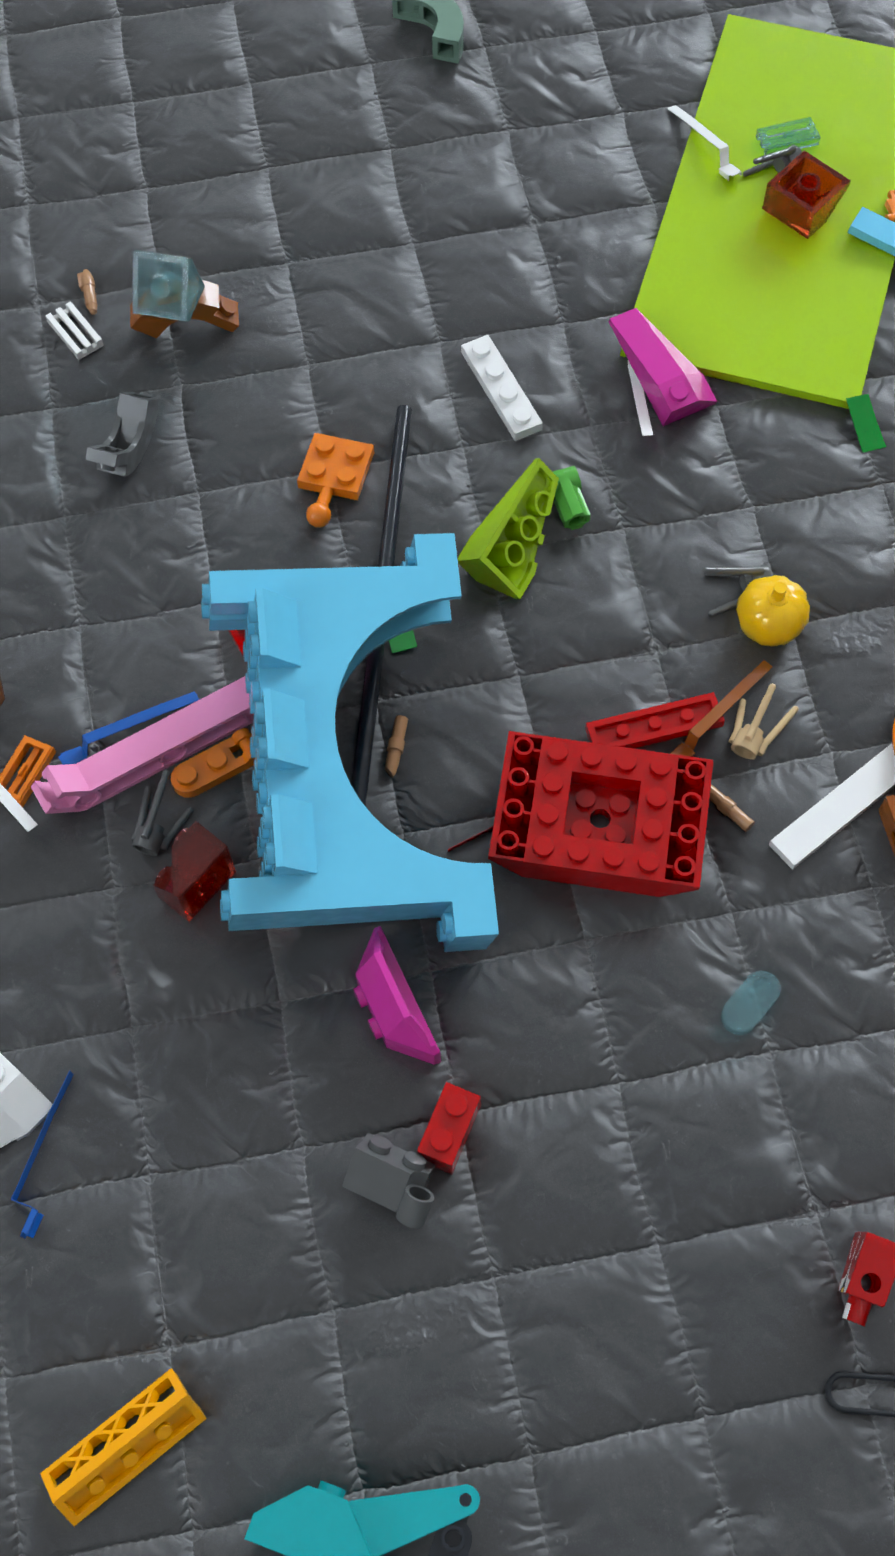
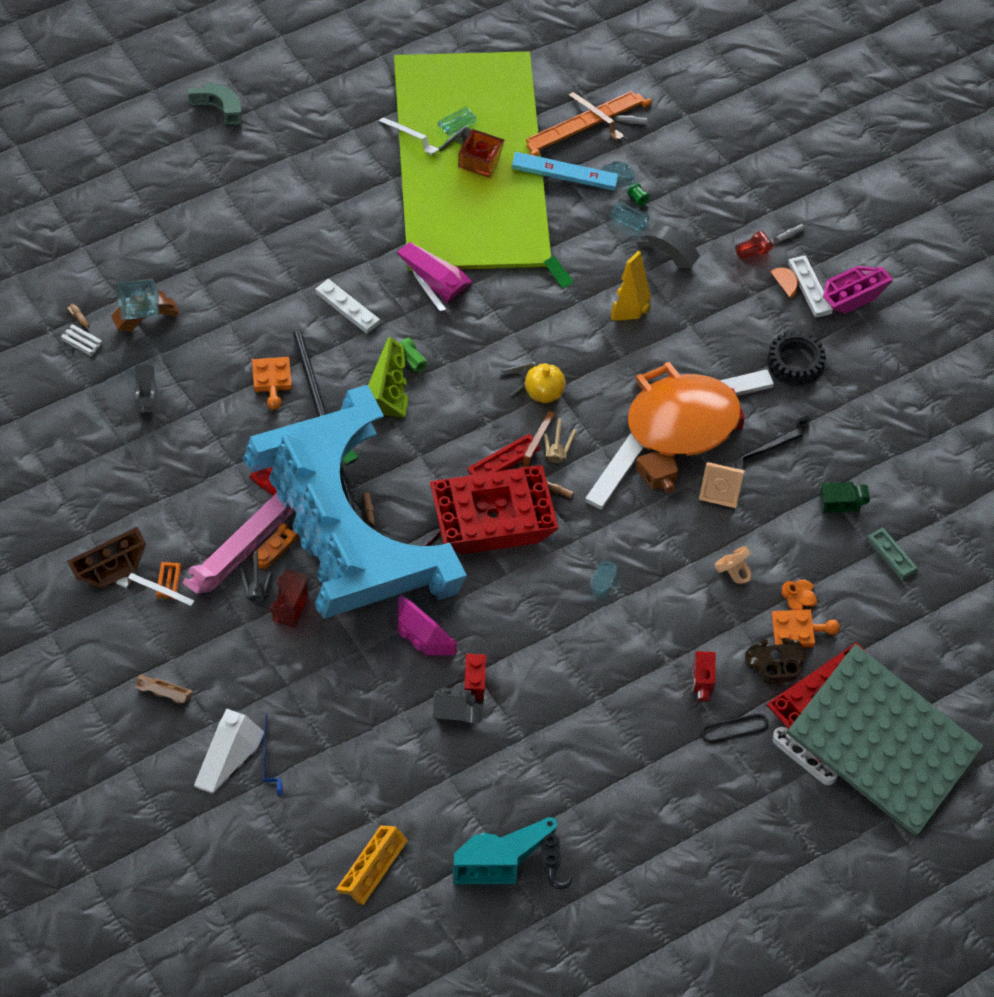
camera: 25 degrees left, 10 degrees down
(80, 753) = (213, 541): blue piece -> none

